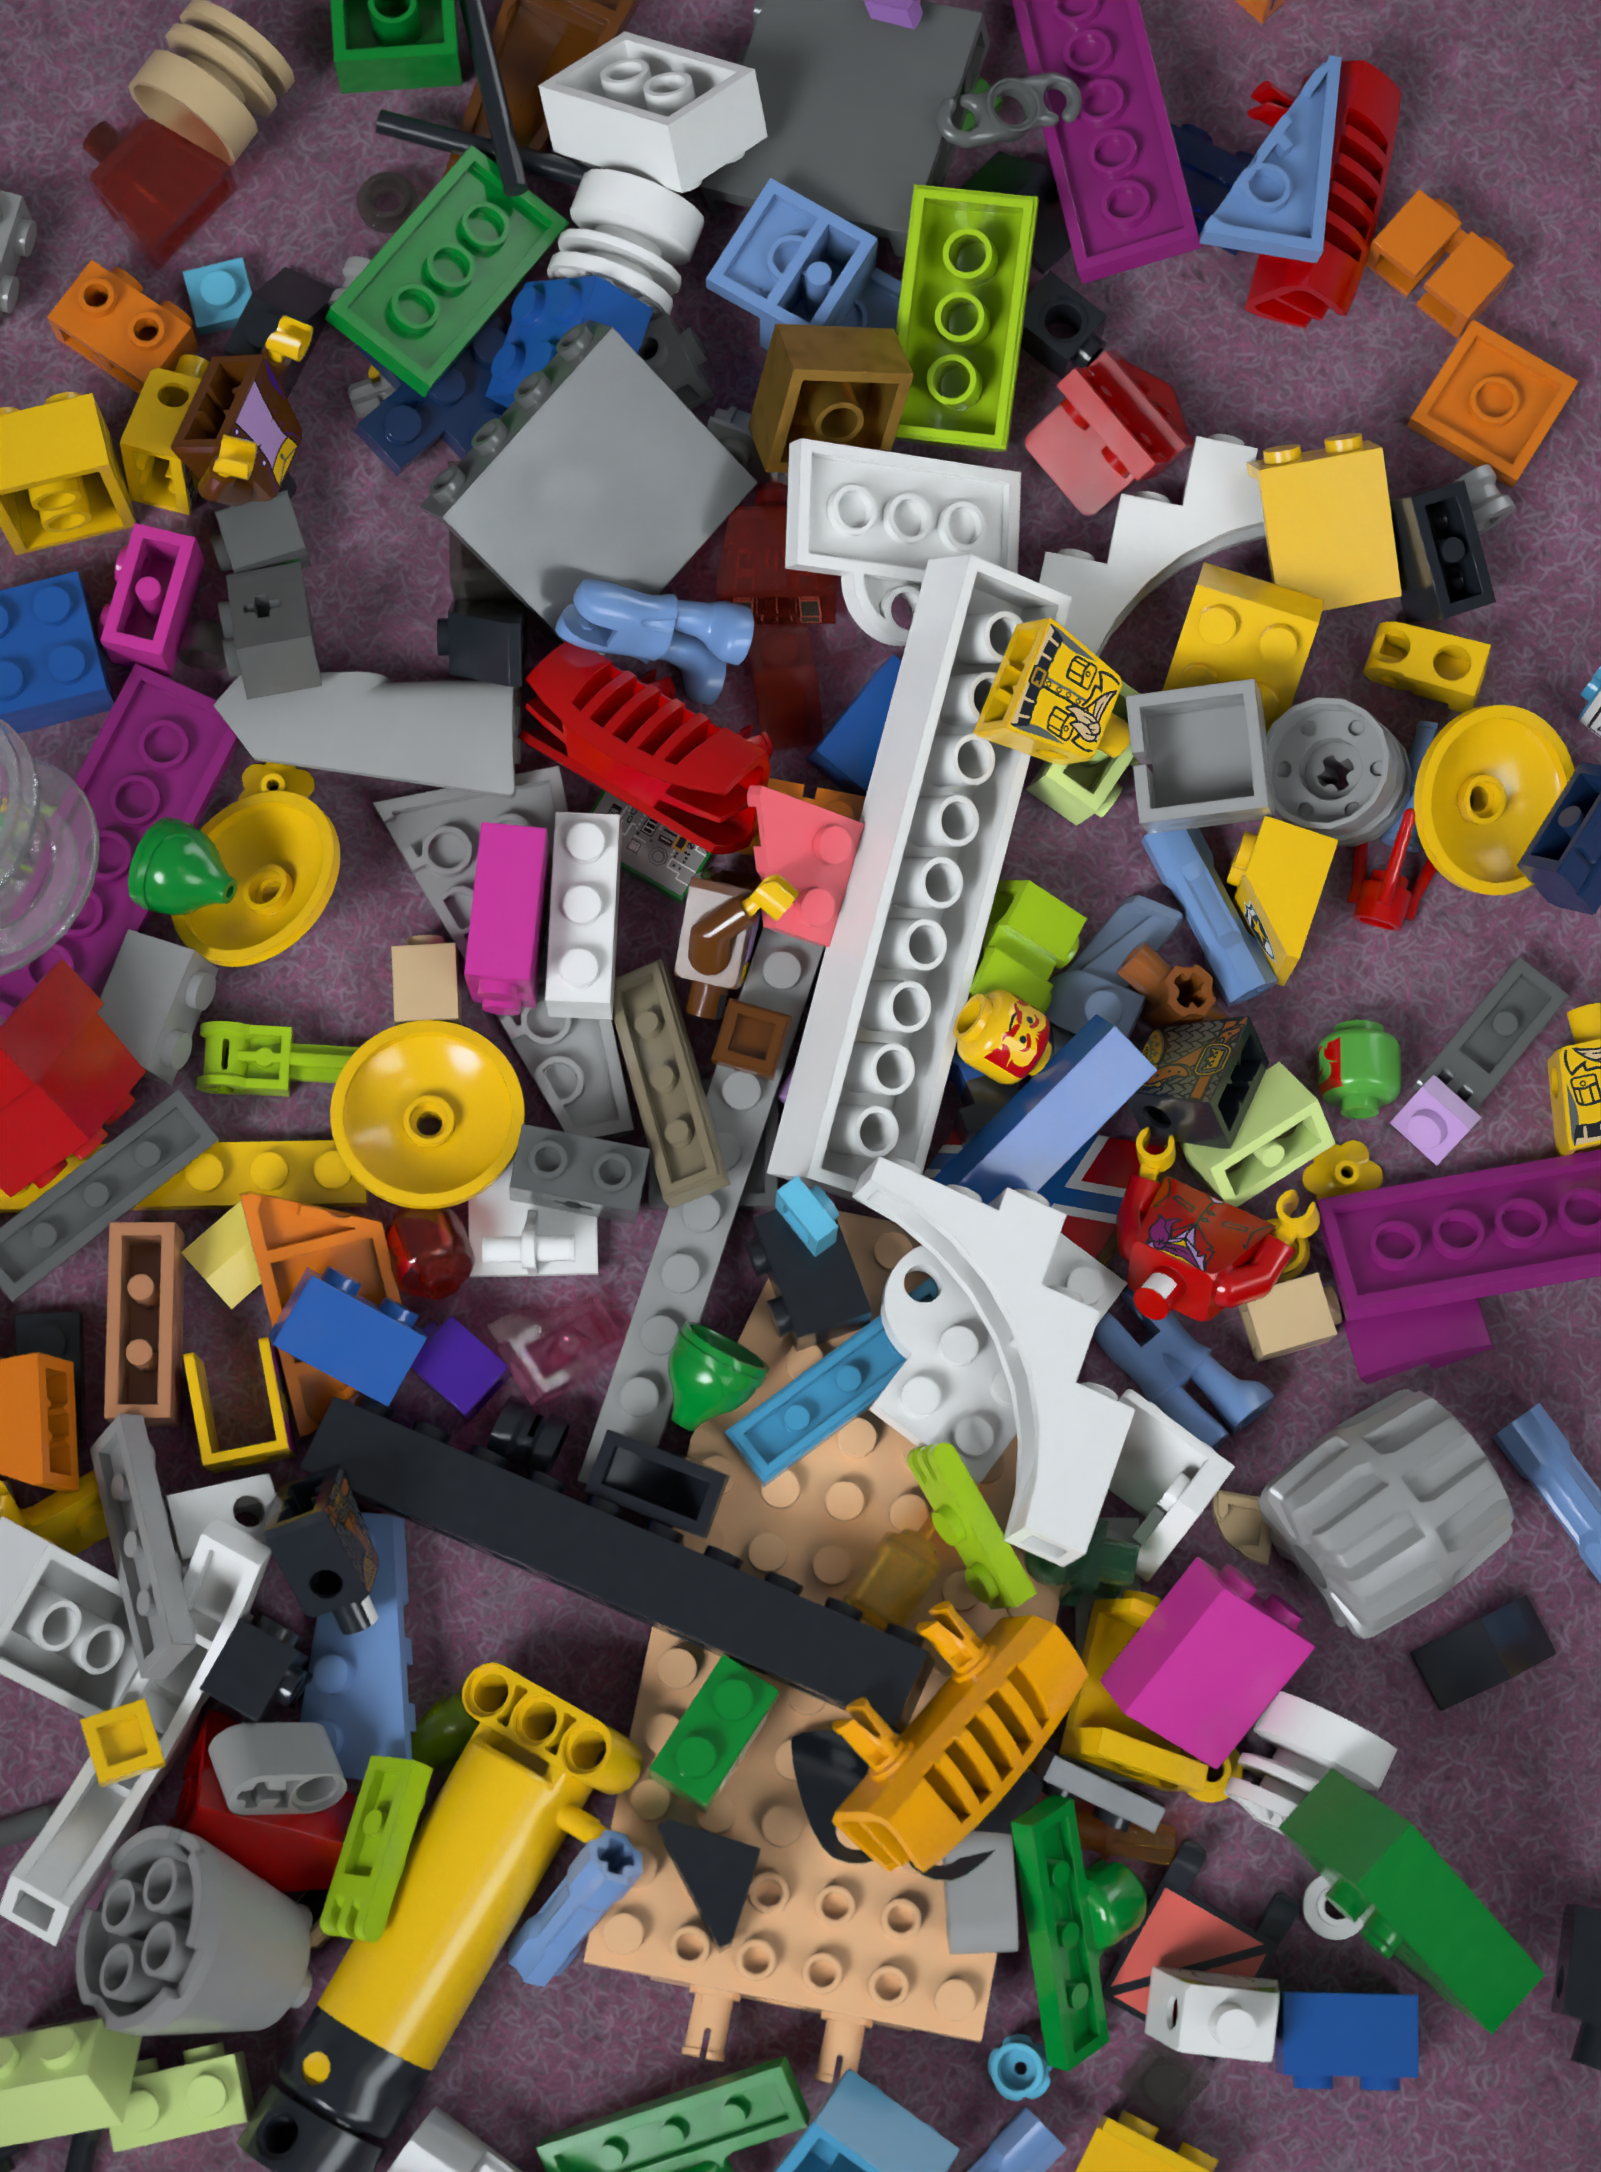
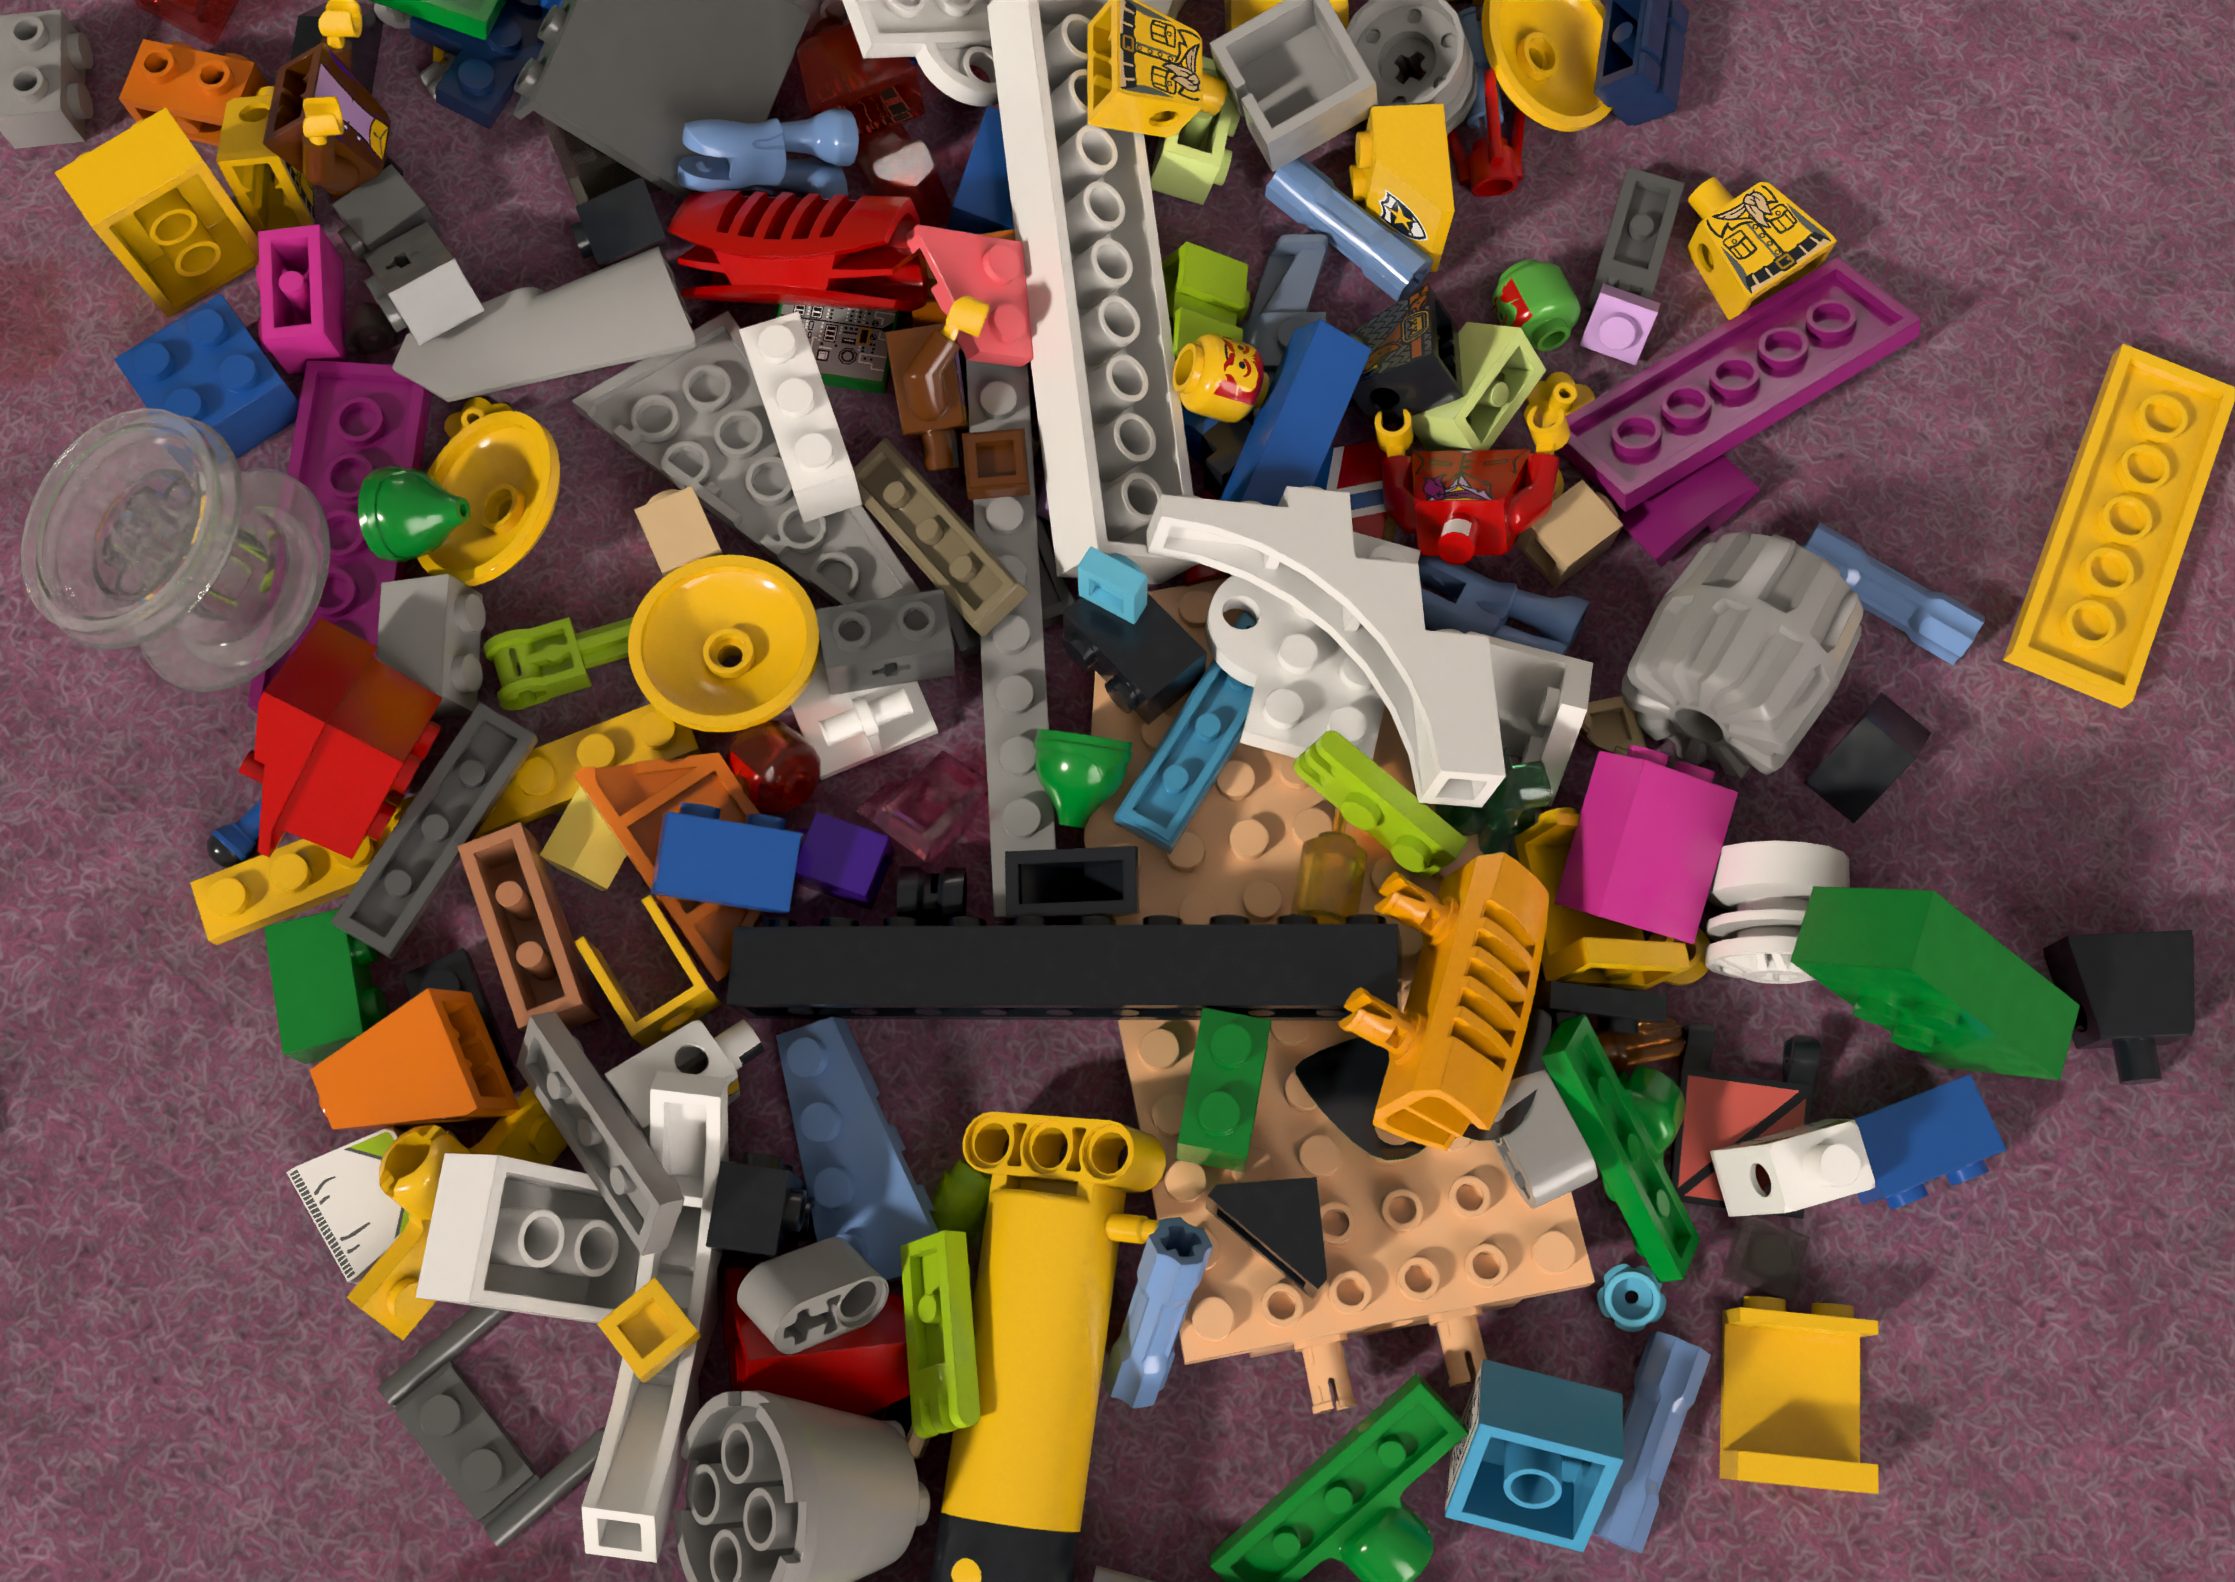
camera: 20 degrees left, 5 degrees down
(218, 294) = (270, 40): medium azure plate -> none
(325, 1548) = (763, 1047): black torso -> none
(508, 917) = (730, 435): dark pink brick -> none
(1164, 983) = (1346, 299): dark orange axle -> none
(1318, 1920) = (1833, 1043): white plate -> none

